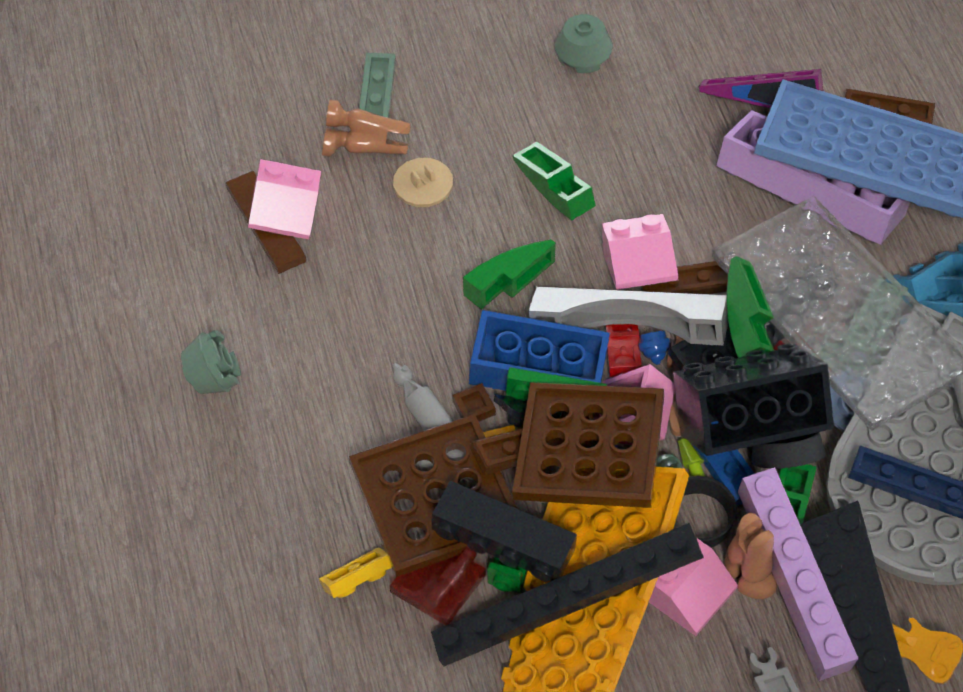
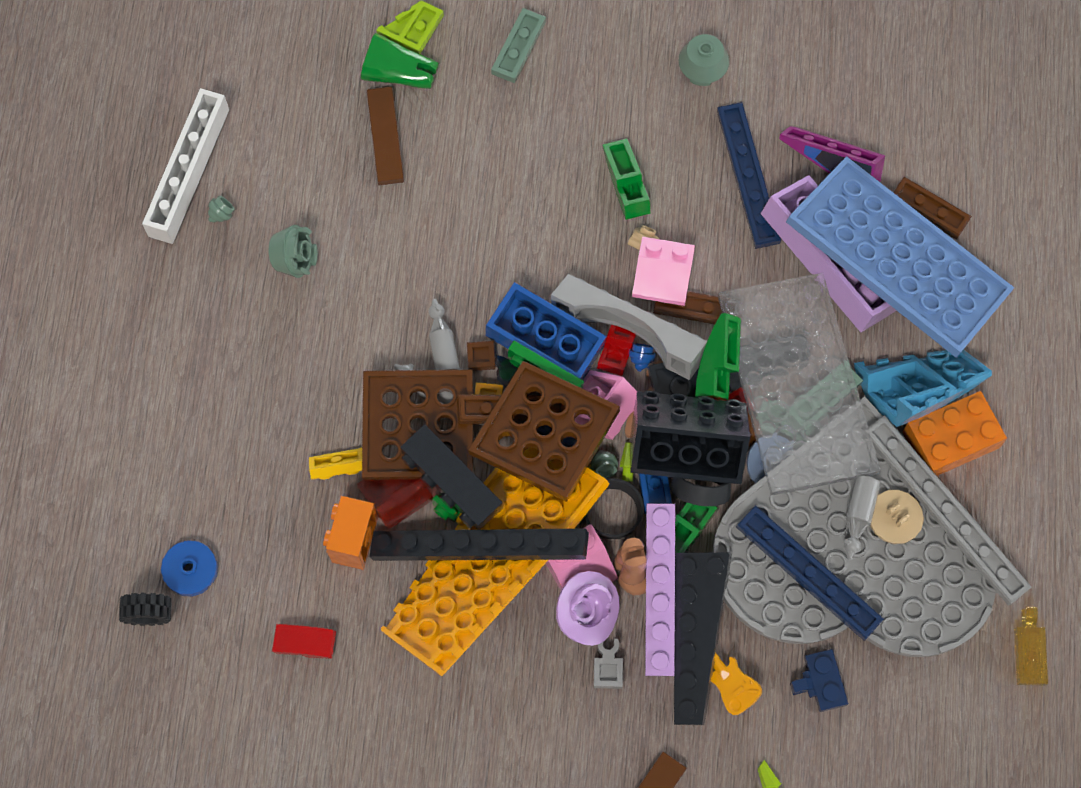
camera: 20 degrees right, 15 degrees up
(48, 319) = (186, 166): none -> white brick
(104, 353) = (220, 209): none -> sand green plate
(243, 146) = (396, 64): none -> green piece
(251, 108) = (413, 27): none -> lime wing
(284, 199) = (403, 125): slope -> none
(367, 132) = (492, 85): nougat piece -> none
(407, 637) = (351, 532): none -> orange brick
(423, 182) = (523, 142): tan piece -> none
(508, 272) = (554, 250): green slope -> none
(594, 232) = (636, 238): none -> tan plate
(682, 138) = (747, 173): none -> dark blue tile
(723, 621) = (587, 608): none -> lavender hat

